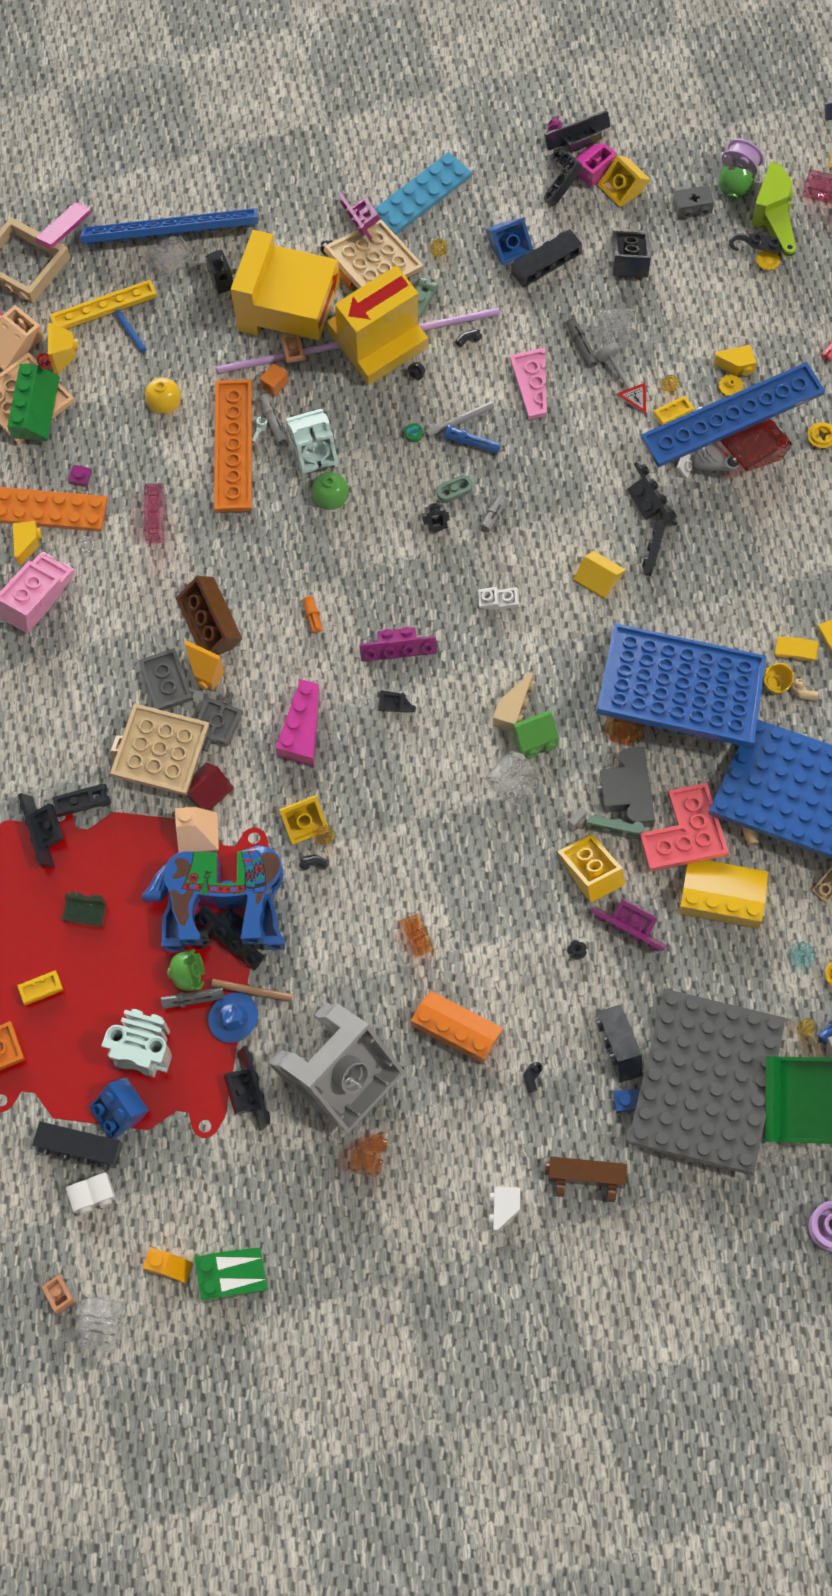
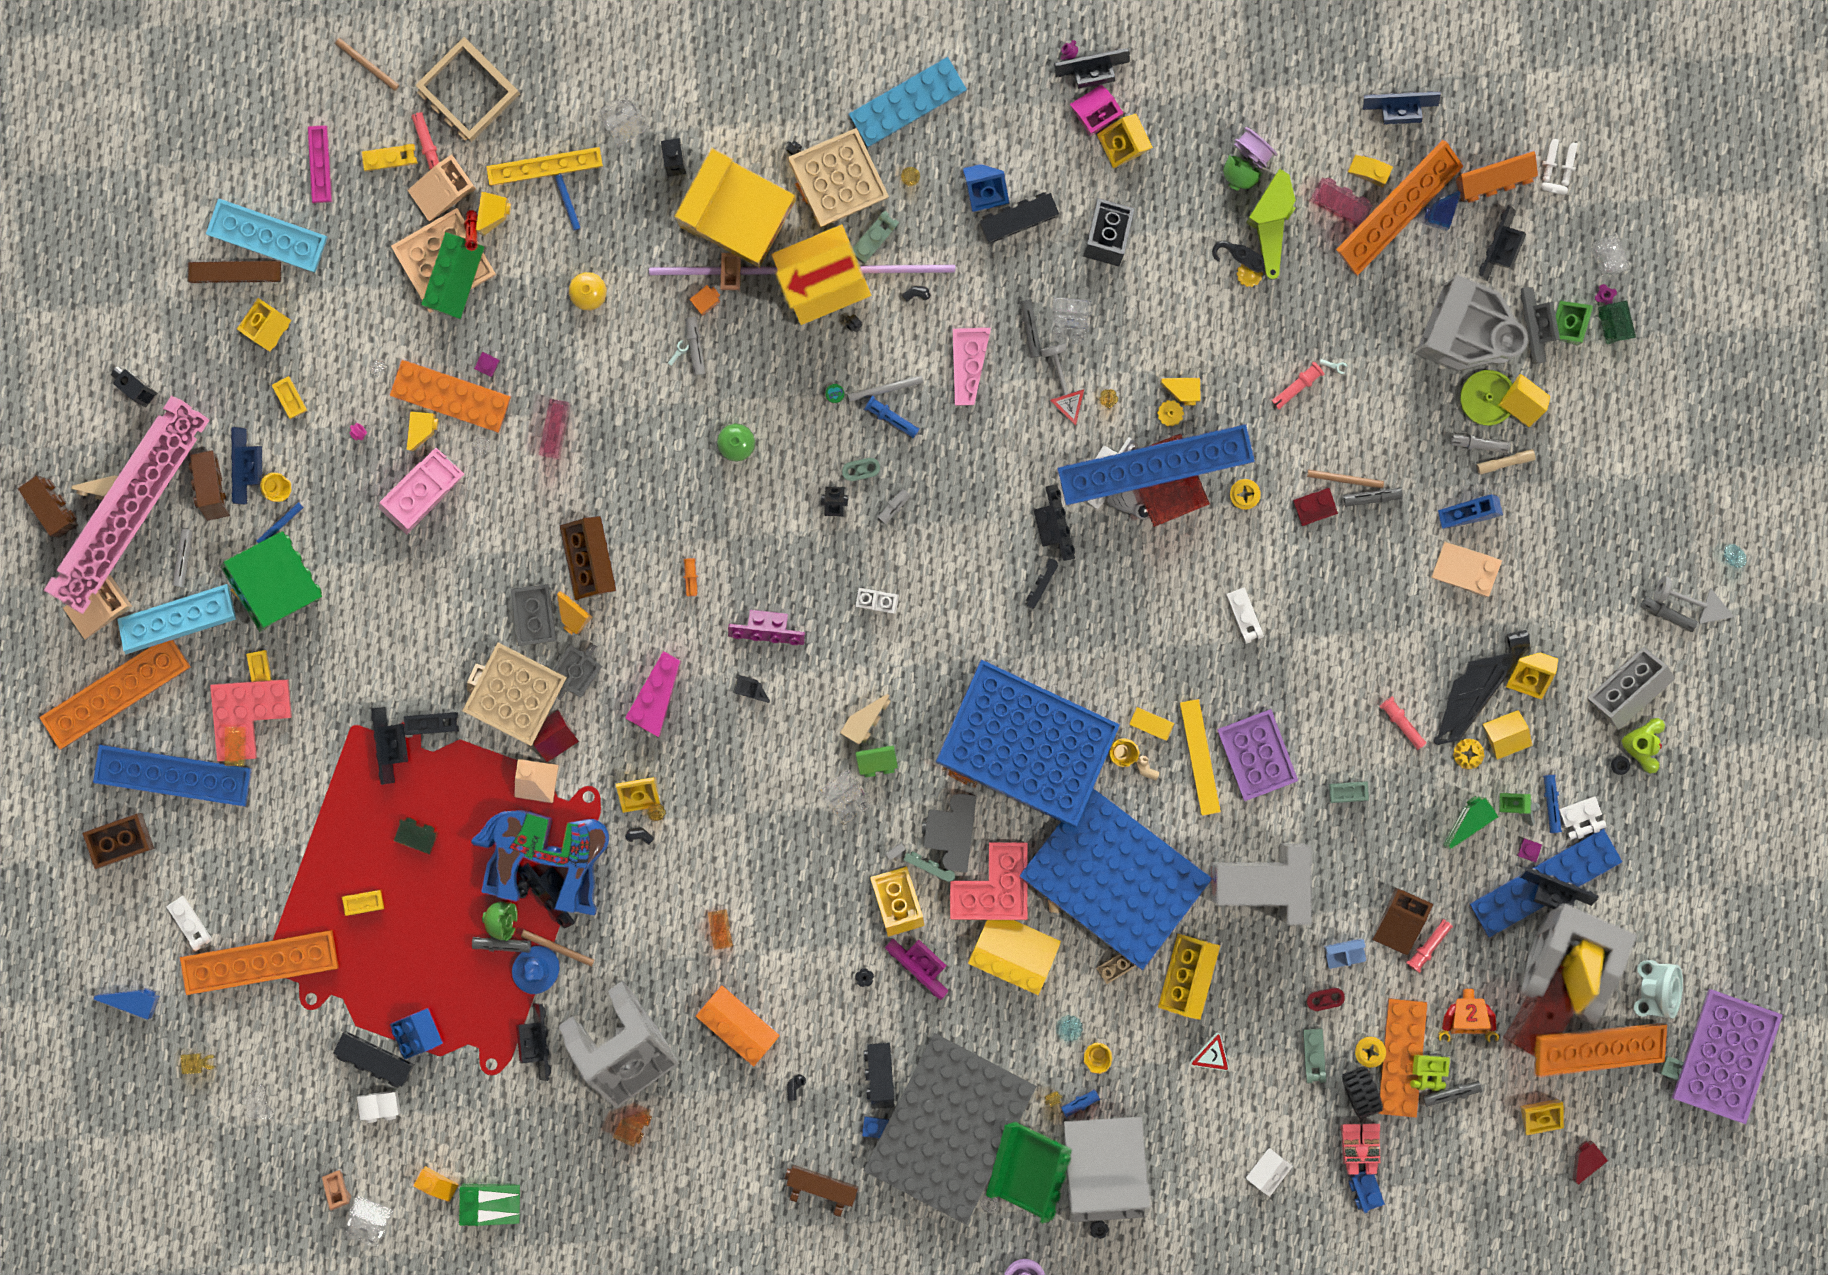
camera: 10 degrees right, 20 degrees up
(63, 225) = (518, 59): tile -> none
(139, 1042) = (445, 978): light aqua piece -> none
(164, 226) = (631, 85): blue plate -> none
(233, 446) = (648, 366): orange plate -> none
(312, 441) = (727, 389): light aqua piece -> none
(361, 214) = (836, 122): magenta bracket -> none
(506, 1206) = (743, 1199): white slope -> none
(565, 178) = (1047, 139): black beam -> none
(598, 574) = (982, 596): yellow slope -> none
(673, 410) = (1103, 432): yellow plate -> none
(693, 202) = (1181, 179): dark grey brick -> none

